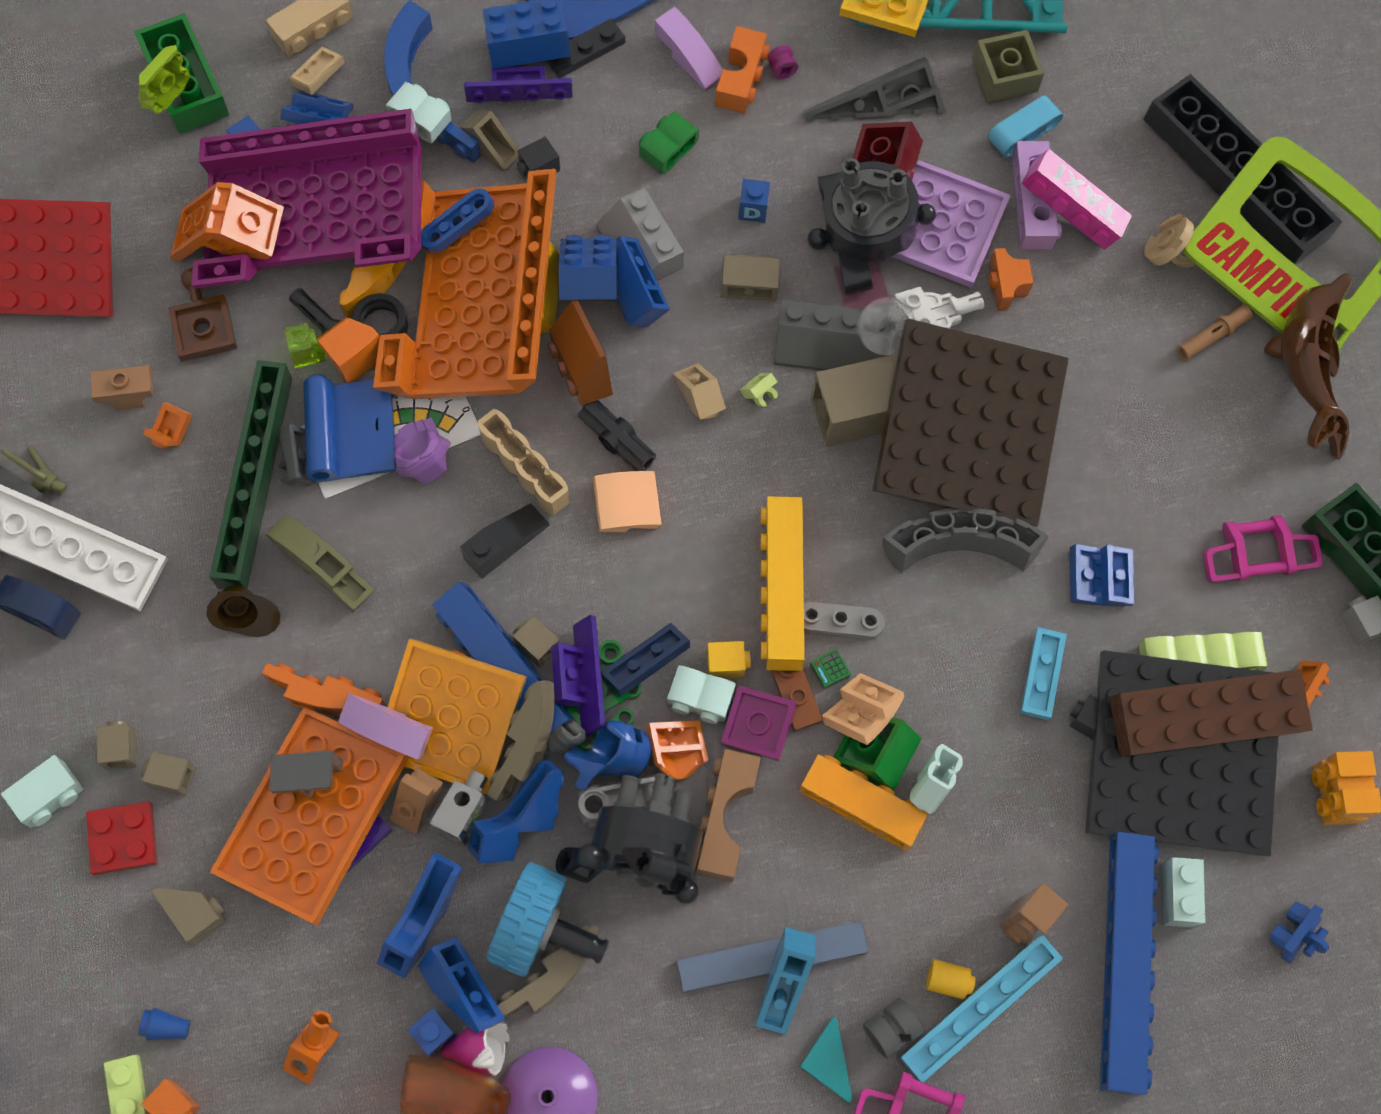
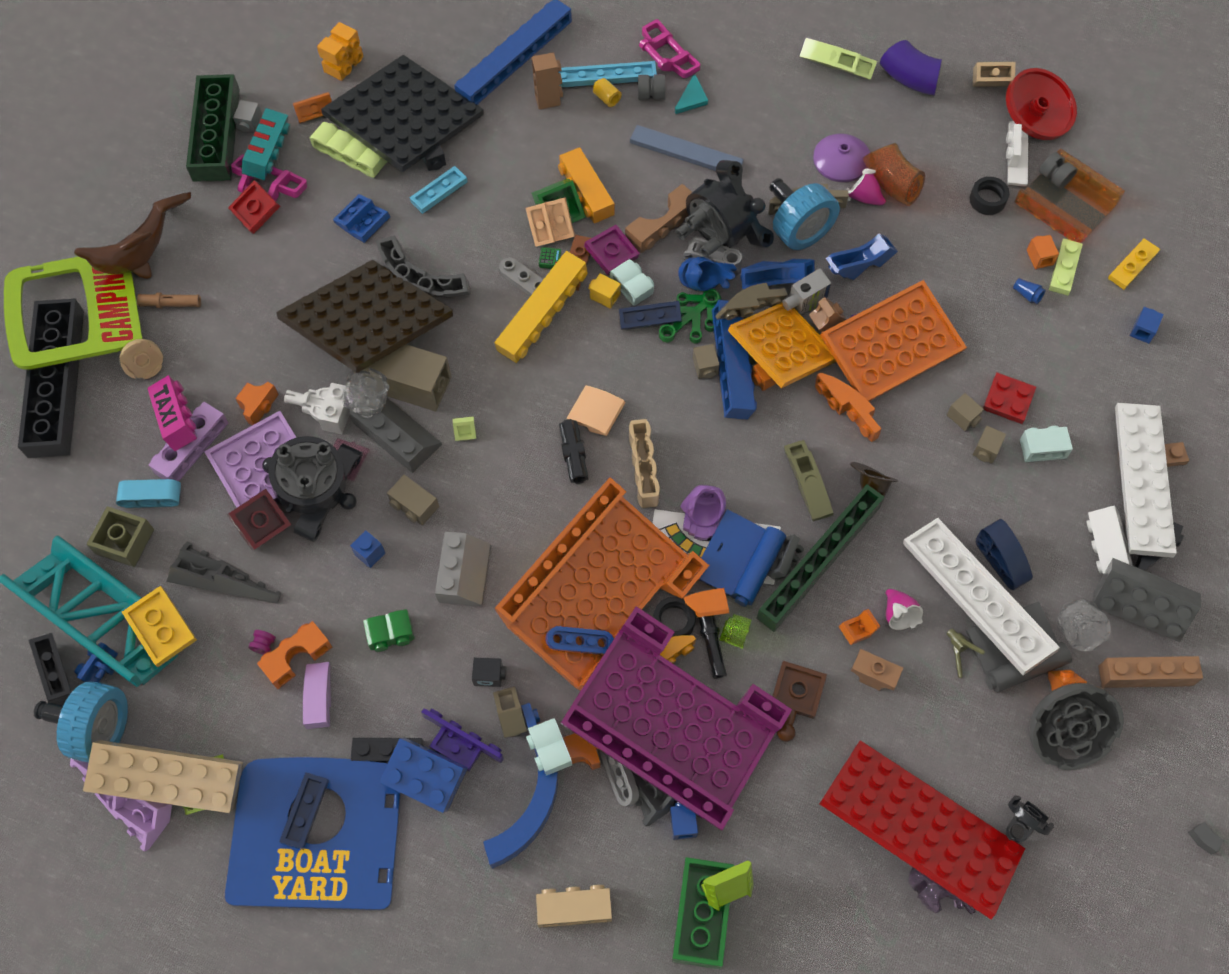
camera: 140 degrees left, 5 degrees down
(130, 473) = (902, 610): none -> hat
(191, 912) = (988, 334): dark tan slope -> none
(228, 222) = (747, 742): orange bracket -> none
(303, 772) = (886, 352): dark grey panel -> none
(311, 1046) = (952, 238): orange bracket -> none
(314, 108) = (619, 814): blue slope -> none
(316, 70) = (597, 855): tan plate -> none
(385, 726) = (825, 352): lavender slope -> none
(432, 1032) = (886, 208): blue brick -> none
(459, 985) = (860, 217): blue slope -> none
(502, 539) = (686, 430): black slope -> none
(566, 737) = (722, 292): dark grey arm -> none
(579, 356) = (563, 499): dark orange slope -> none
(579, 675) = (693, 324): dark purple bracket -> none
(587, 268) = (514, 550): blue brick -> none
(637, 286) = (492, 526): blue slope -> none
(677, 747) = (664, 267): orange slope -> none
(700, 391) = (502, 448): tan slope -> none
(786, 980) = (686, 130): dark azure slope -> none
(936, 779) = (541, 165): light aqua brick -> none
(1183, 892) = (461, 60): light aqua brick -> none
(1210, 713) = (379, 105): reddish brown brick -> none
(1236, 502) = (254, 207): none -> red tile
(1291, 942) = (421, 16): blue hips -> none
(1303, 586) = (265, 144): none -> teal brick

